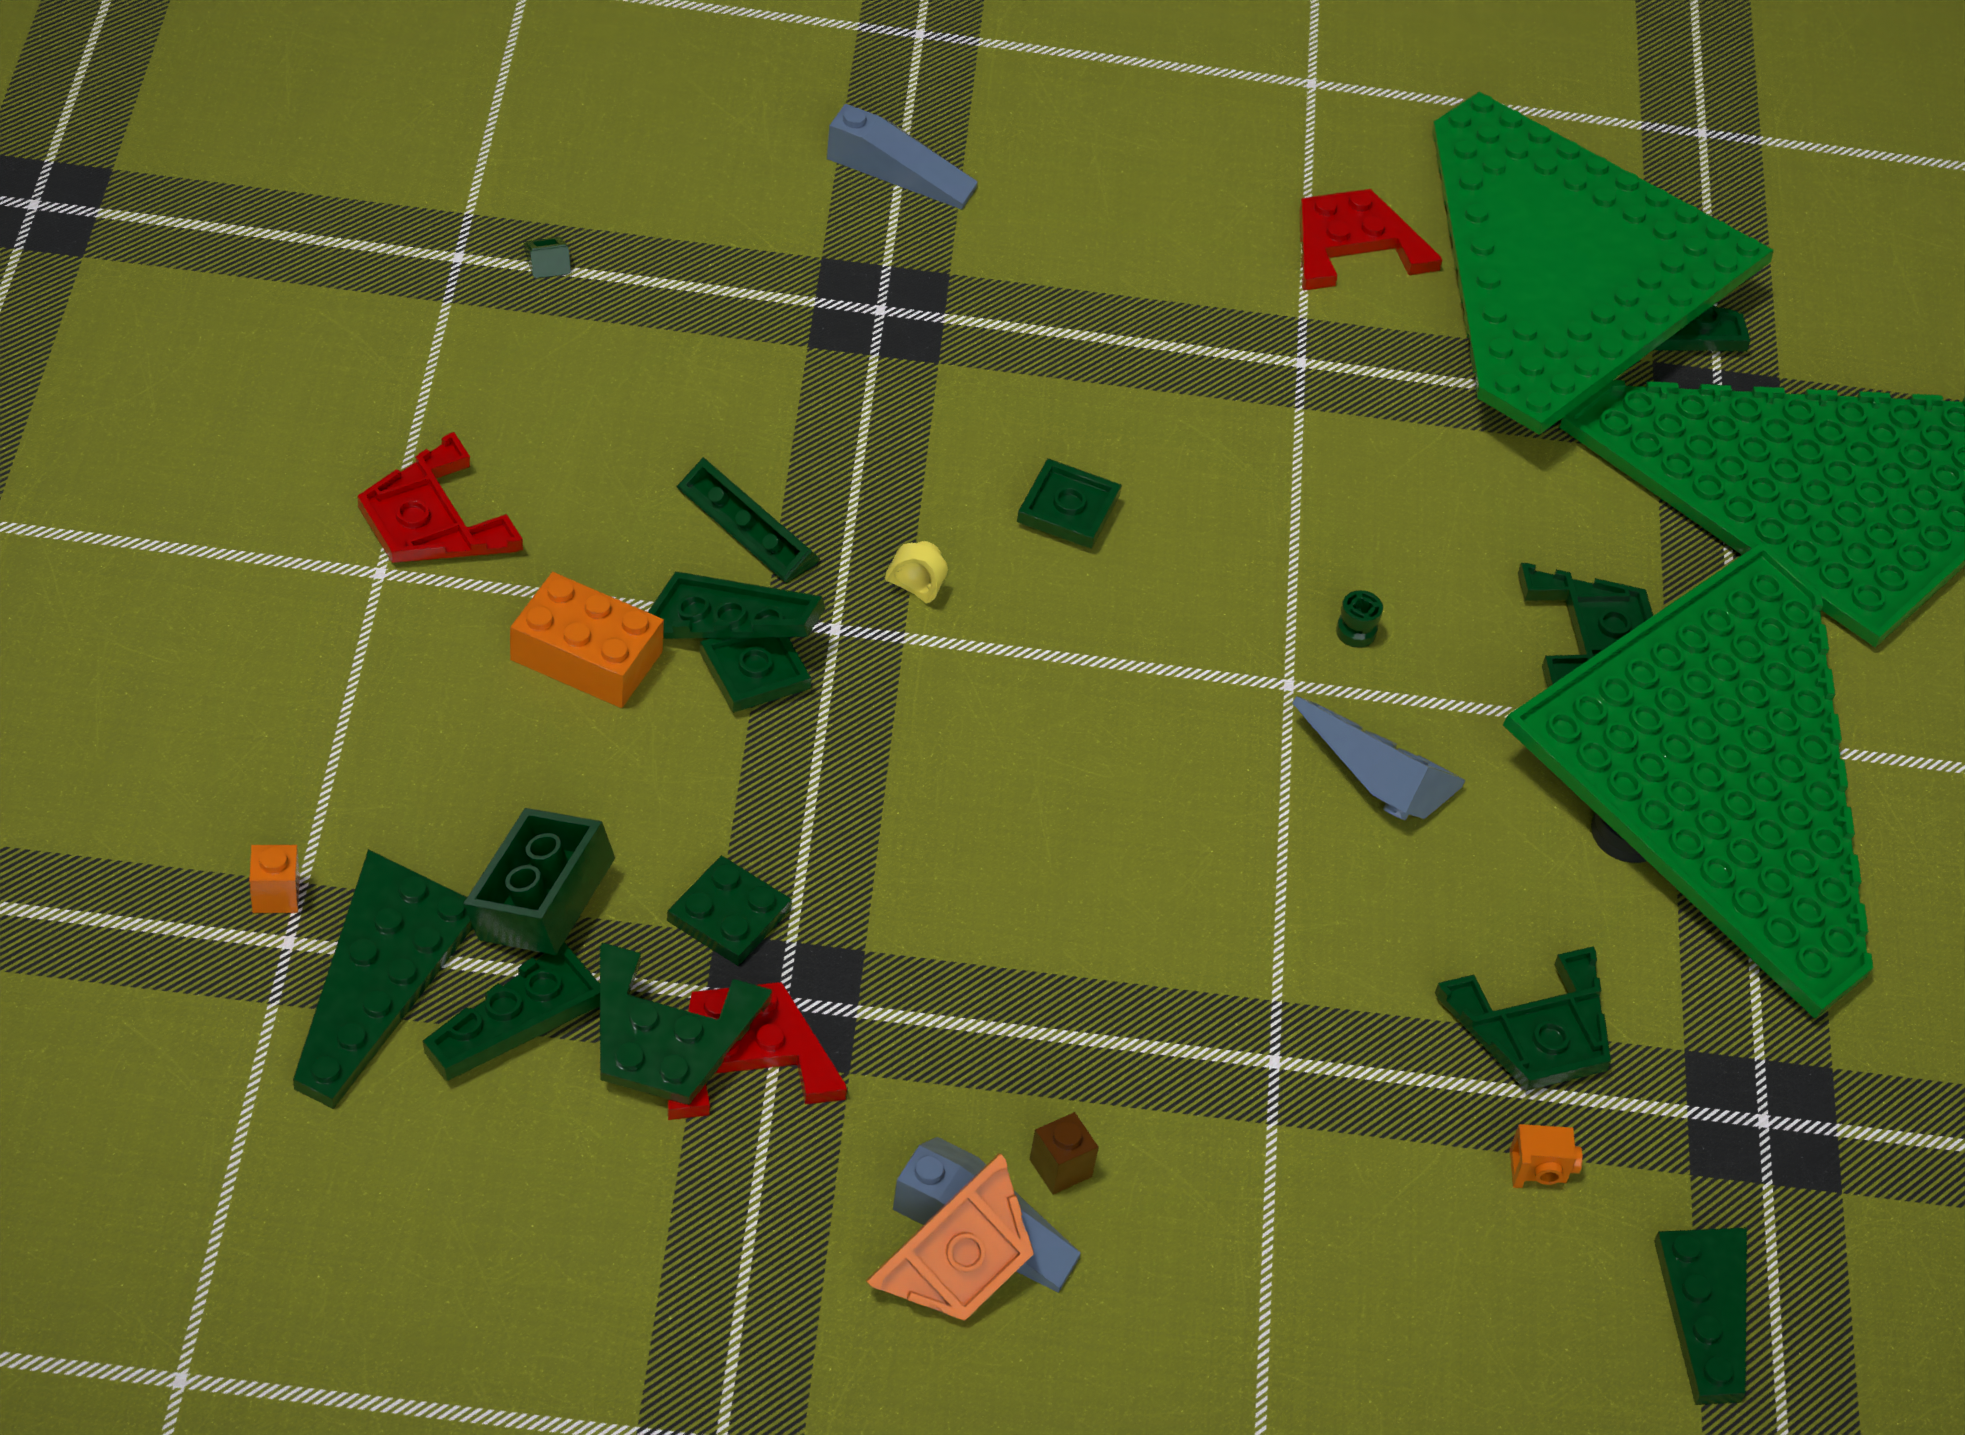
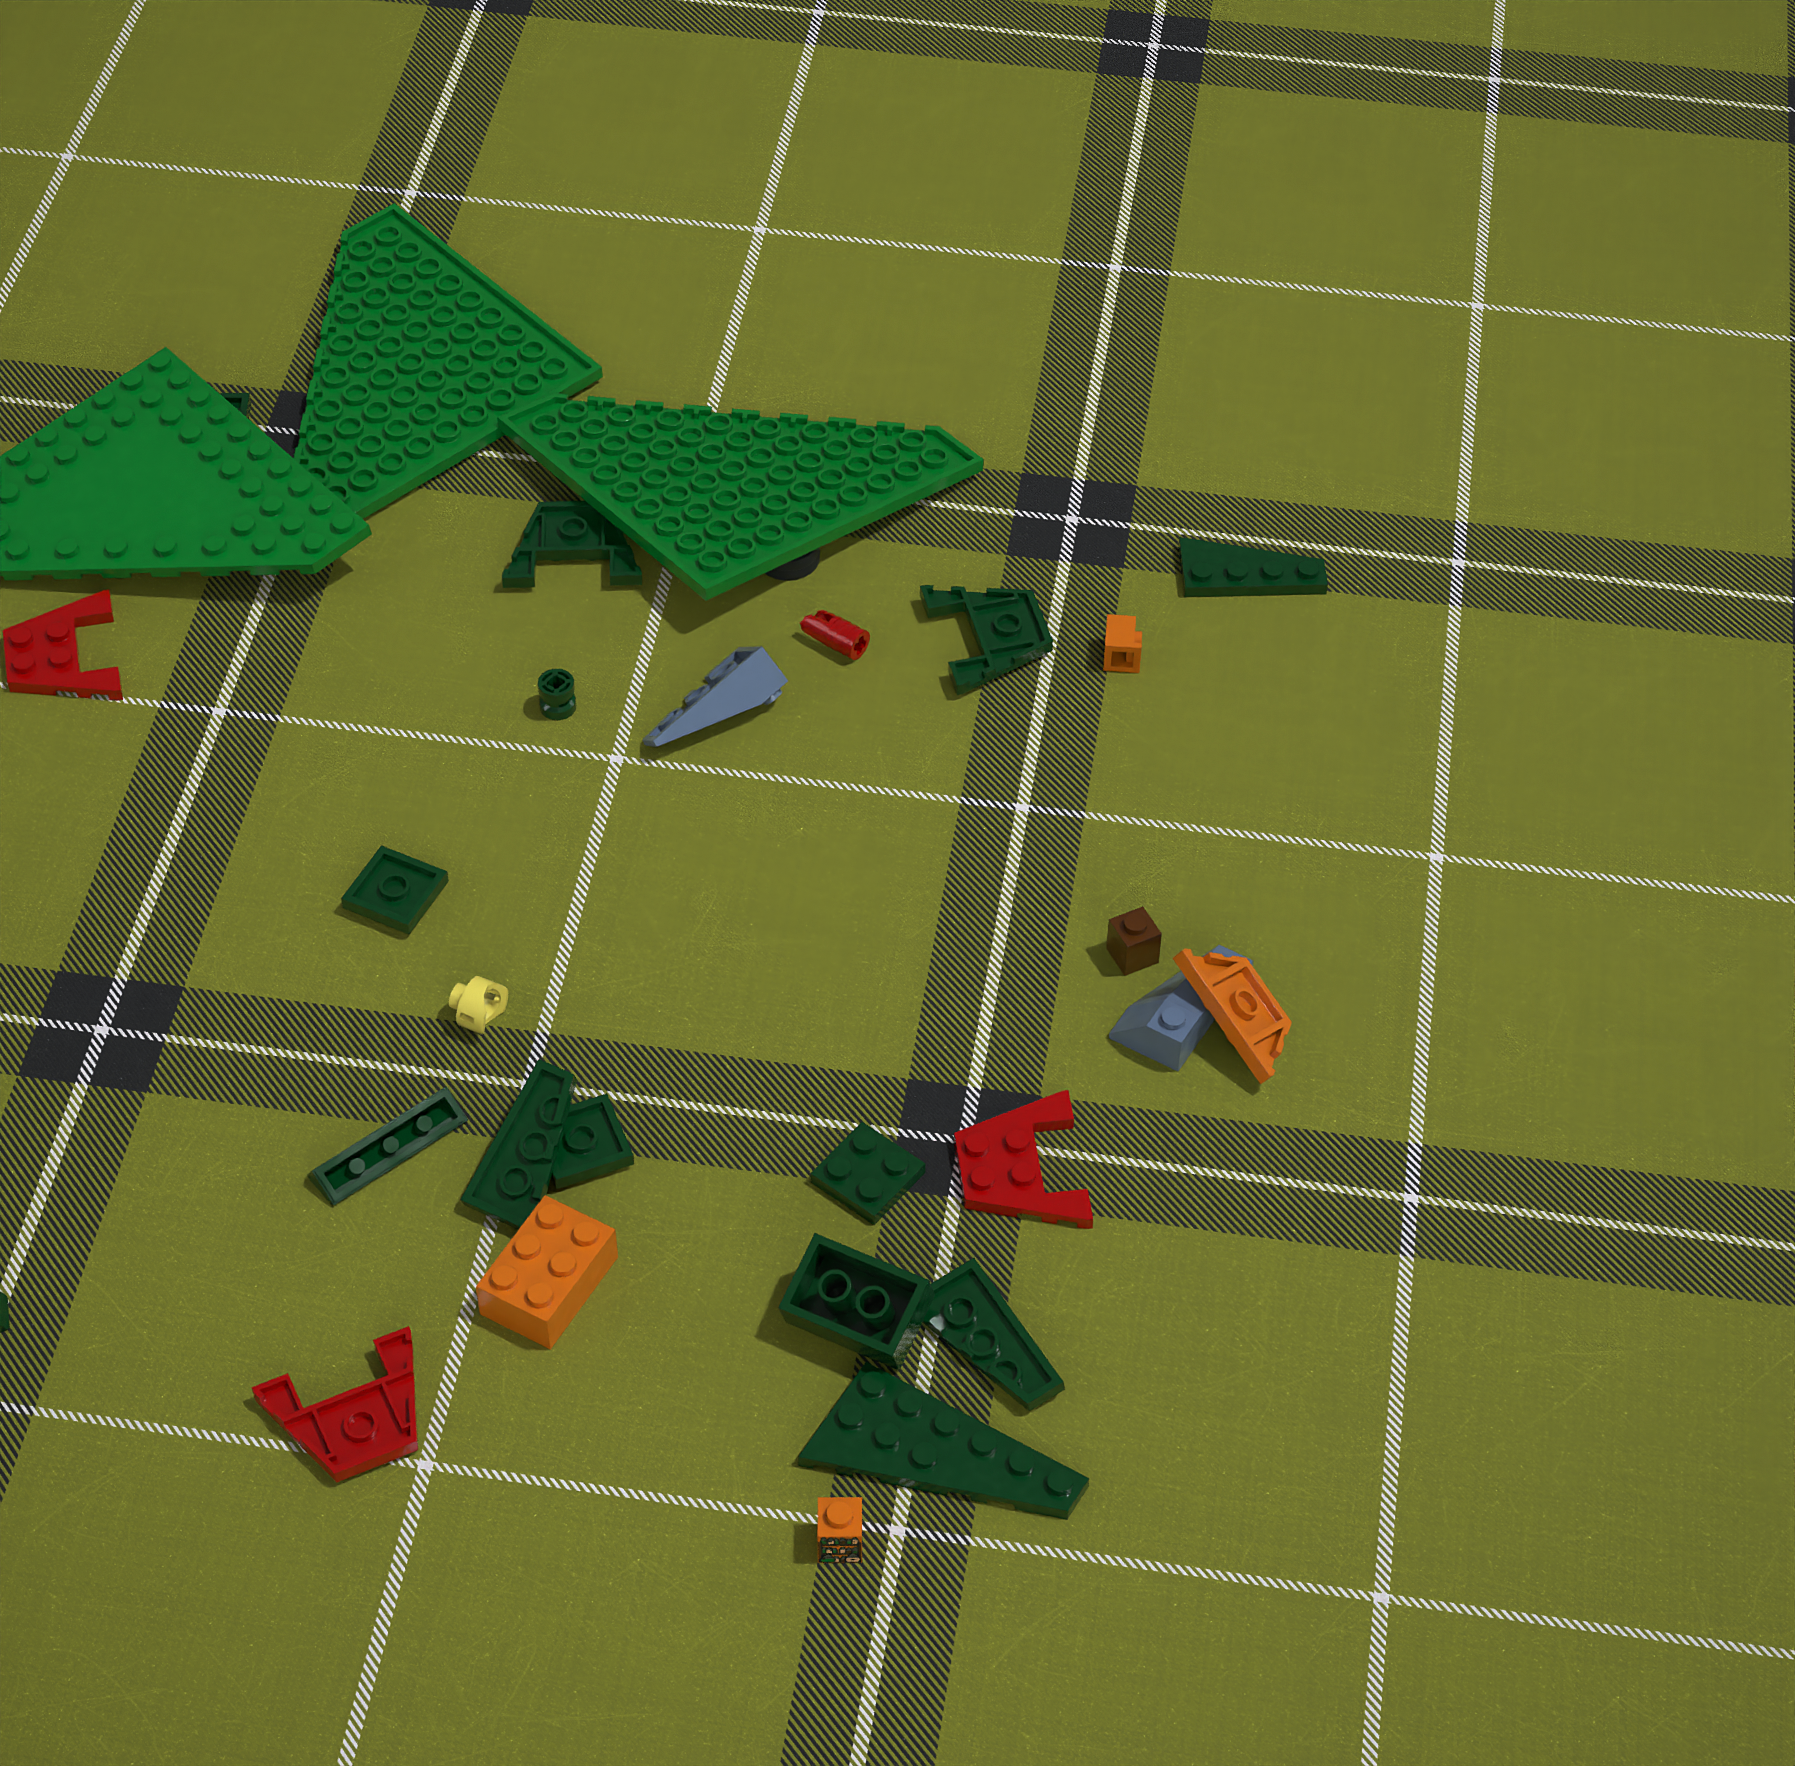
camera: 80 degrees left, 0 degrees up
(662, 1046) = (1035, 1216): dark green wing -> none
(1502, 872) = (836, 633): none -> red hinge

